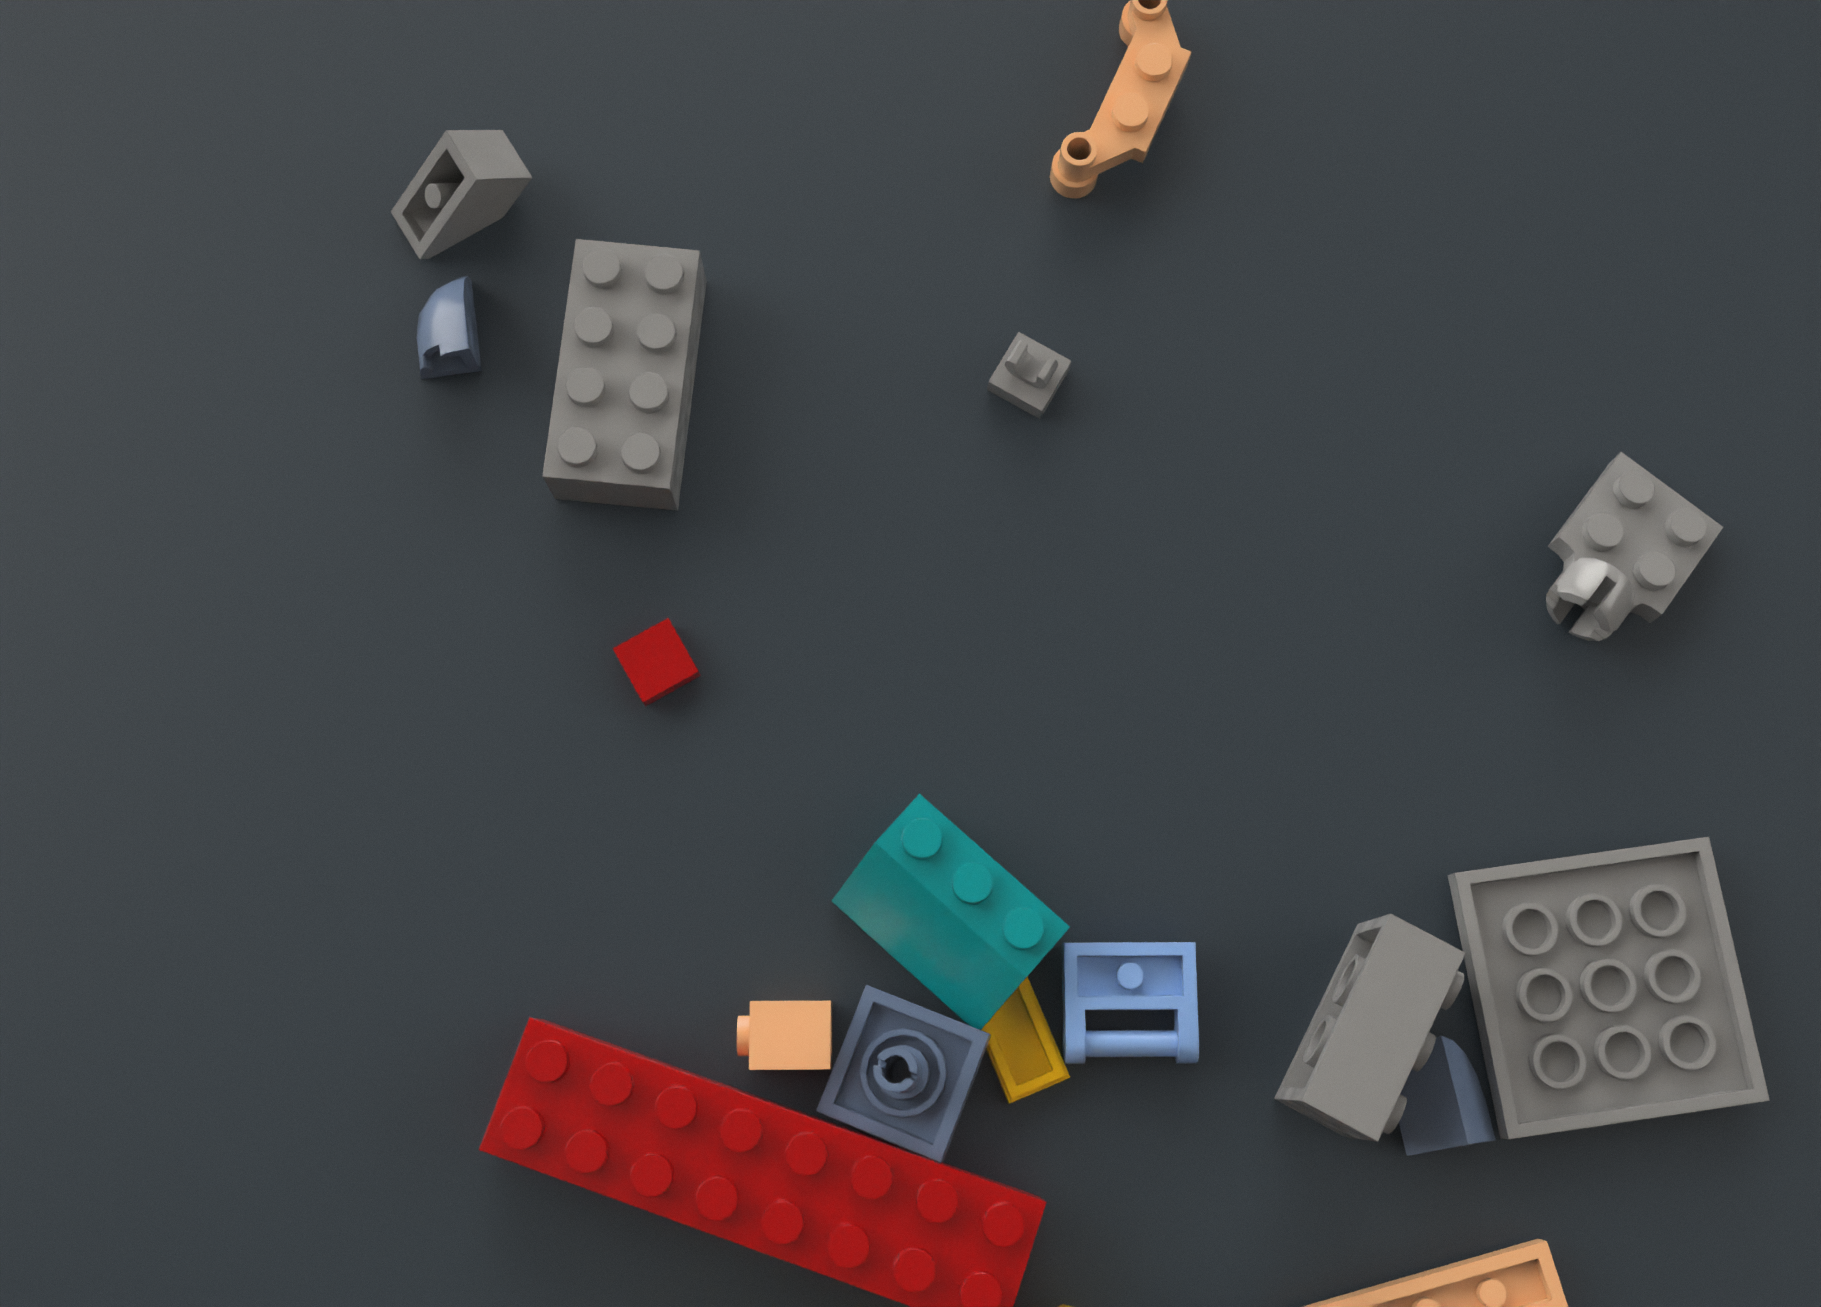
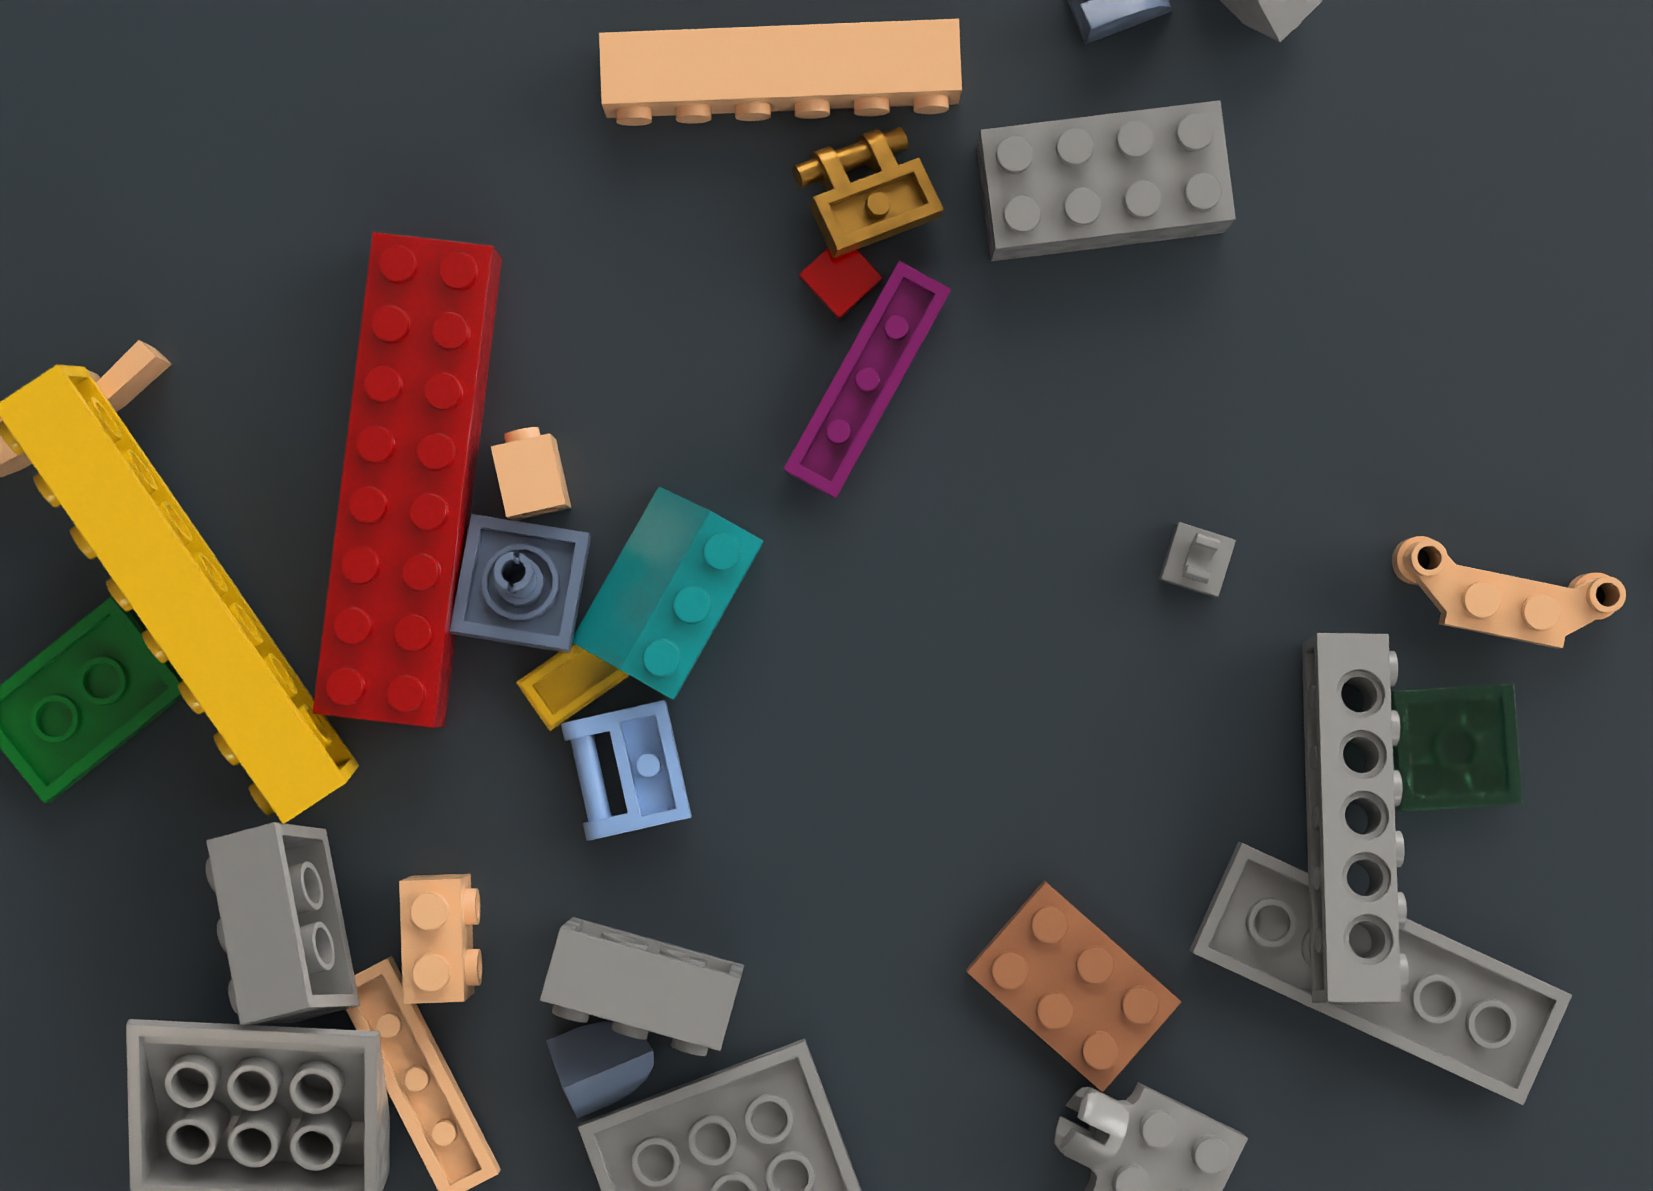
camera: 80 degrees right, 10 degrees up
(422, 675) = (780, 70): none -> light nougat brick
(592, 610) = (873, 206): none -> pearl gold plate
(772, 657) = (867, 380): none -> magenta plate
(1266, 174) = (1457, 747): none -> clear green plate
(1276, 1252) = (439, 938): none -> light nougat brick
(1346, 301) = (1332, 846): none -> light grey brick
(1437, 590) = (1073, 986): none -> nougat plate
(1474, 294) = (1458, 1002): none -> light grey plate

